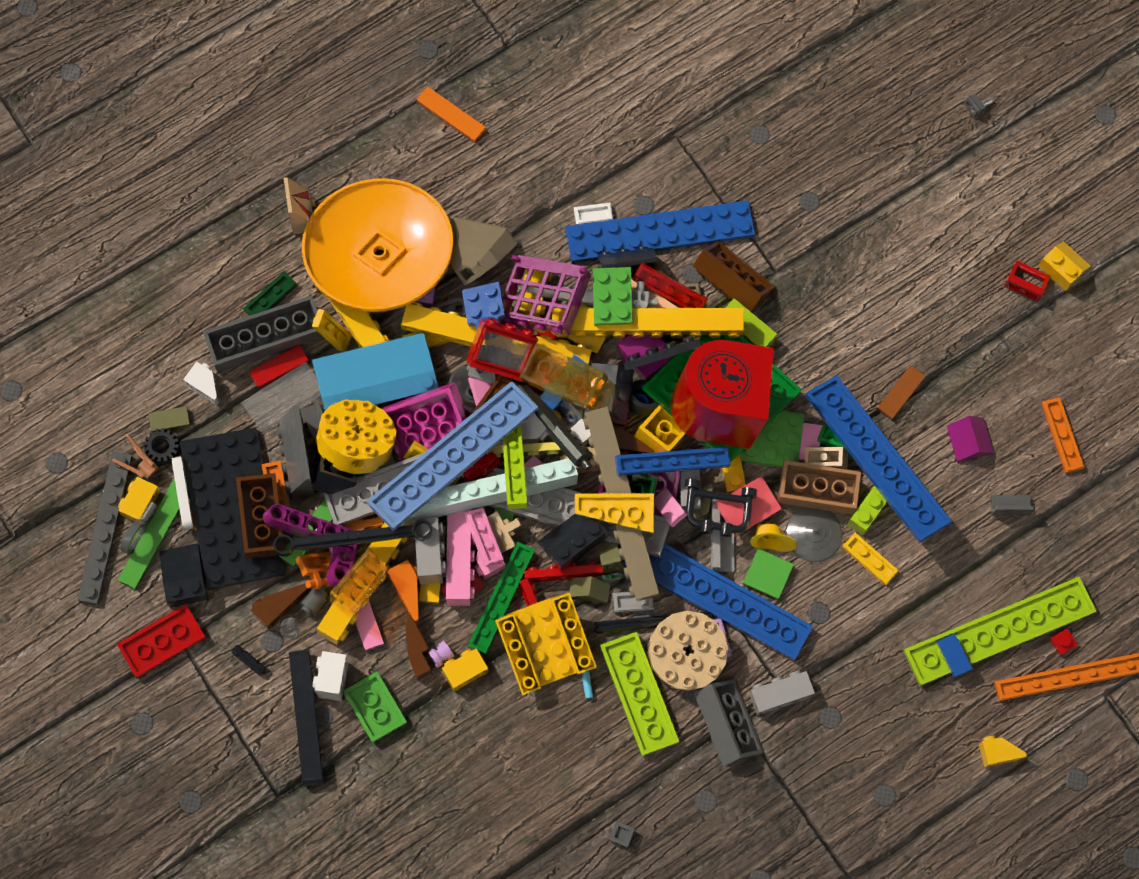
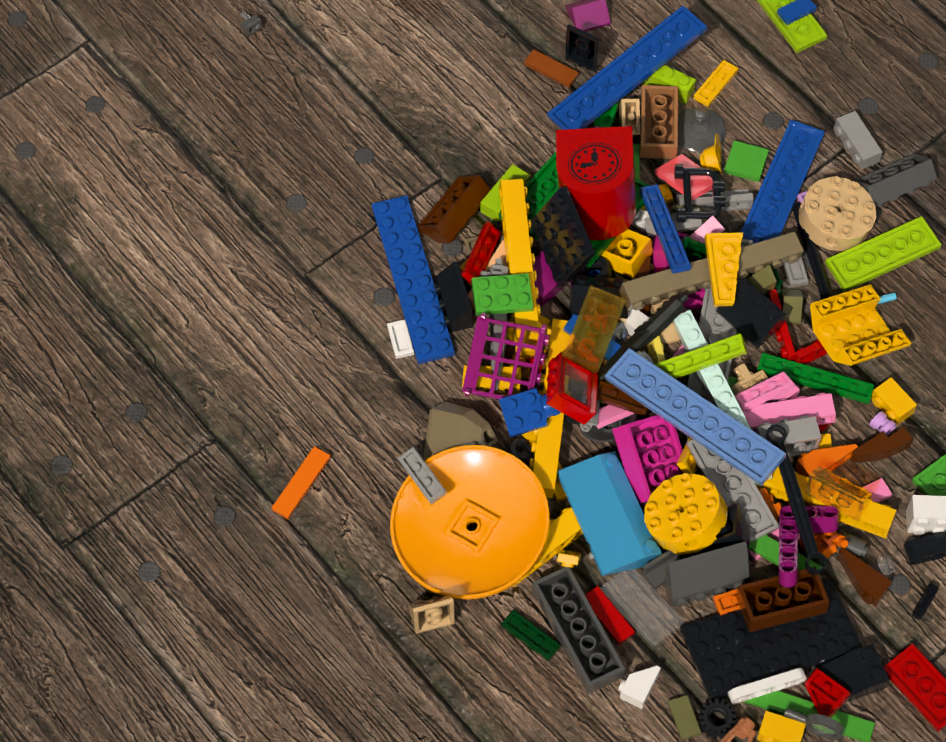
camera: 90 degrees left, 10 degrees down
(166, 545) = (826, 693): none -> red wing
(428, 206) = (422, 475): none -> light grey tile
(918, 424) = (584, 49): none -> black slope

